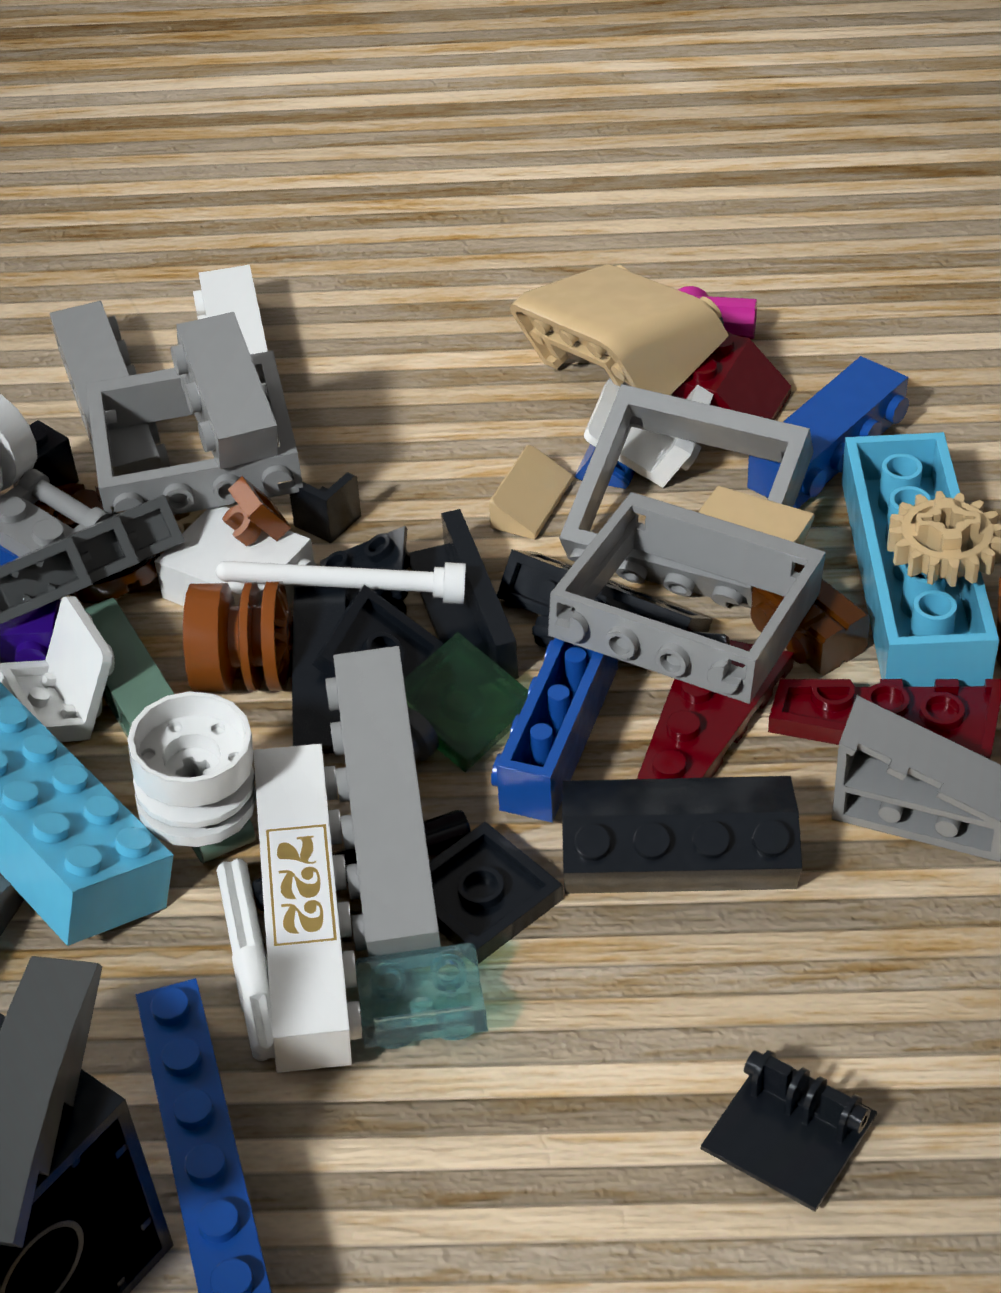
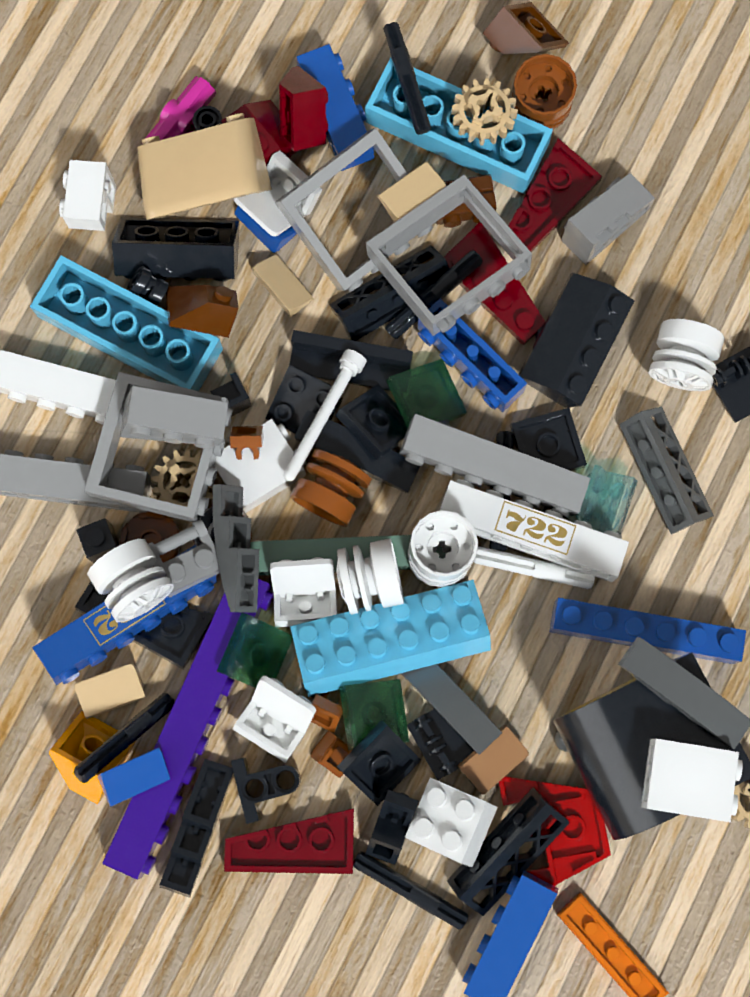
camera: 65 degrees left, 35 degrees up
(89, 698) = (369, 576): none -> white wheel
(355, 375) = (124, 326): none -> medium azure brick
(425, 361) = (147, 286): none -> black wheel
(425, 412) = (202, 308): none -> reddish brown slope
(503, 378) = (177, 248): none -> black slope
(505, 258) = (88, 195): none -> white brick
(521, 1062) = (663, 470): none -> dark grey fence
(772, 983) = (686, 354): none -> white wheel
(781, 371) = (302, 110): none -> dark red slope
(922, 451) = (407, 78): none -> black axle

